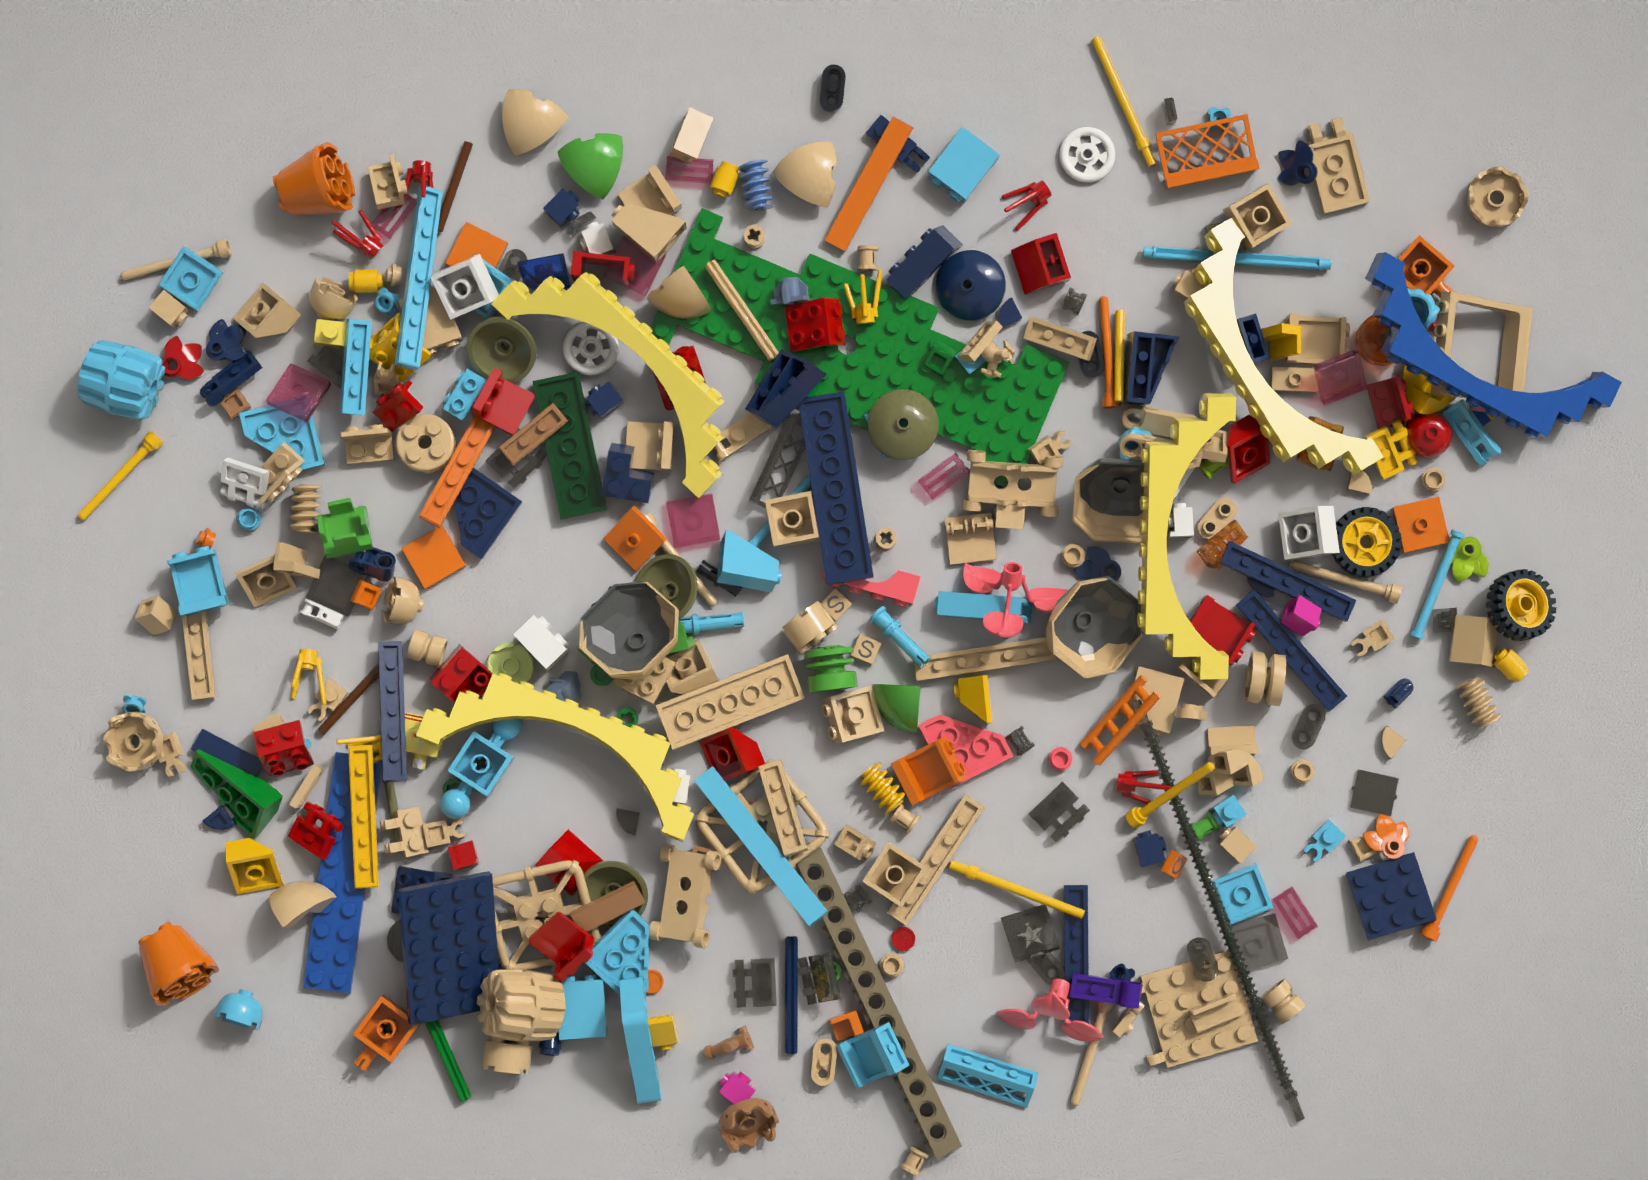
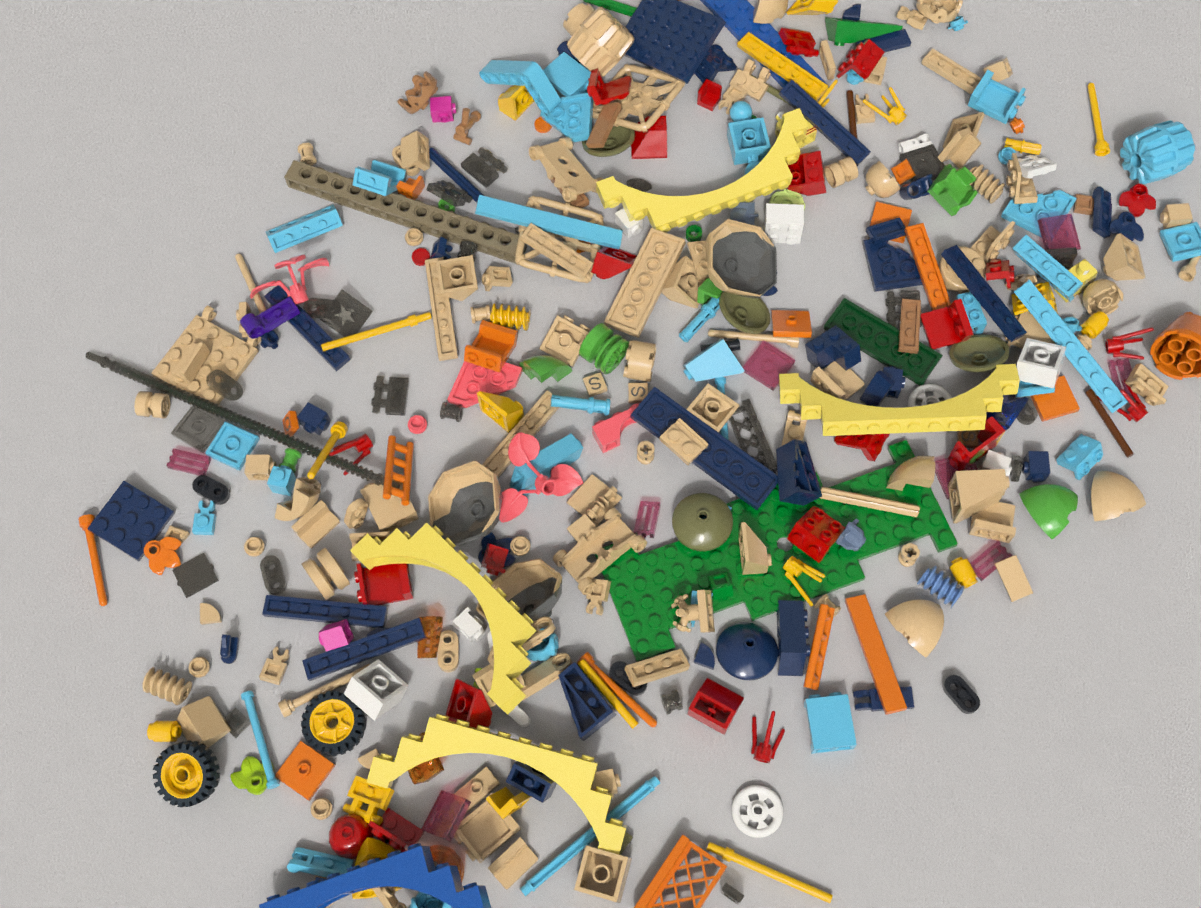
camera: 140 degrees right, 20 degrees down
(224, 514) = (1023, 146): none -> yellow axle
(442, 396) = (983, 293): none -> dark blue plate
(451, 546) = (886, 231): none -> dark blue tile
(513, 181) = (1081, 455): none -> medium azure bracket
(629, 400) = (877, 389): none -> dark blue tile
(810, 1058) = (415, 151): none -> tan panel
(852, 507) = (683, 441): none -> tan plate
(882, 925) = (439, 249): none -> dark blue tile
(889, 355) = (752, 552): none -> tan slope
(913, 228) = (819, 647): none -> orange bar
(1110, 558) = (494, 559): none -> red bracket
(1295, 866) = (210, 488): none -> black plate
(1318, 293) = (513, 863): none -> tan panel
(1437, 699) = (199, 667): none -> tan plate

